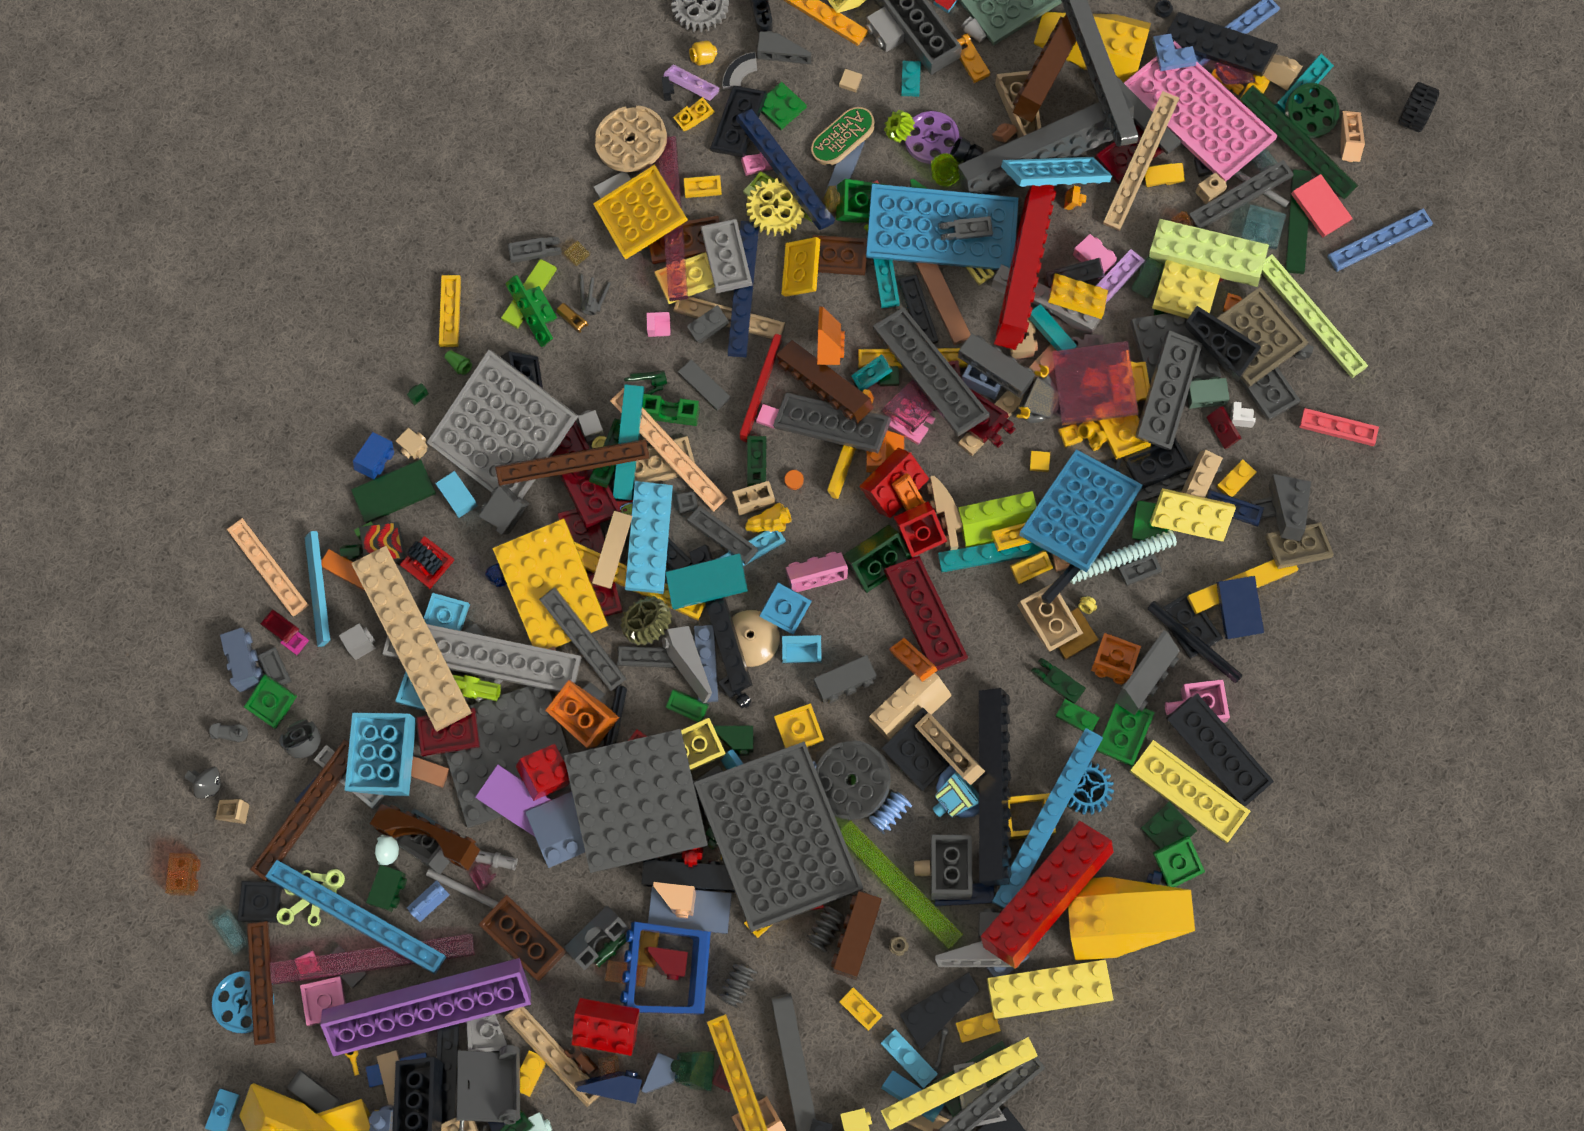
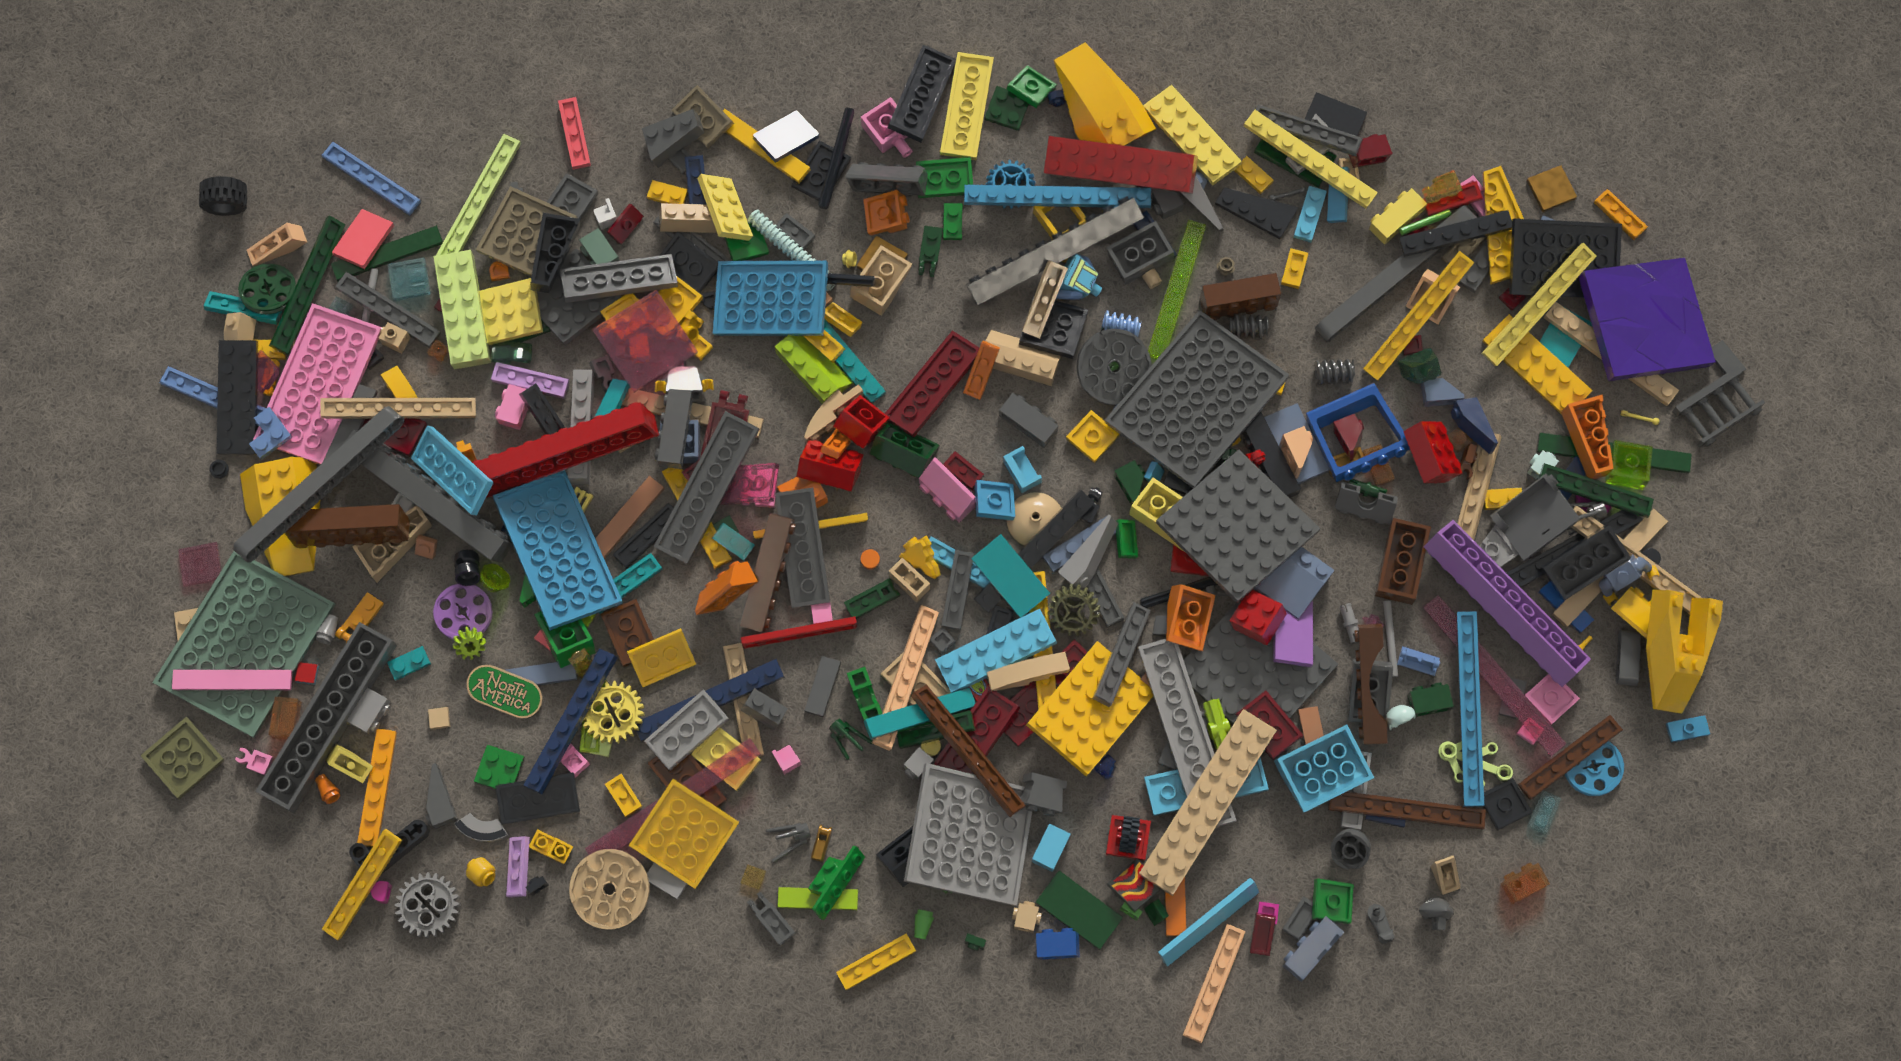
camera: 120 degrees left, 0 degrees up
(358, 641) = (1237, 850): light grey brick -> none
(830, 598) = (963, 470): none -> dark red plate
(968, 228) = (549, 522): dark grey hinge -> none
(1039, 461) = (738, 361): yellow tile -> none
(1078, 296) = (566, 395): yellow plate -> none

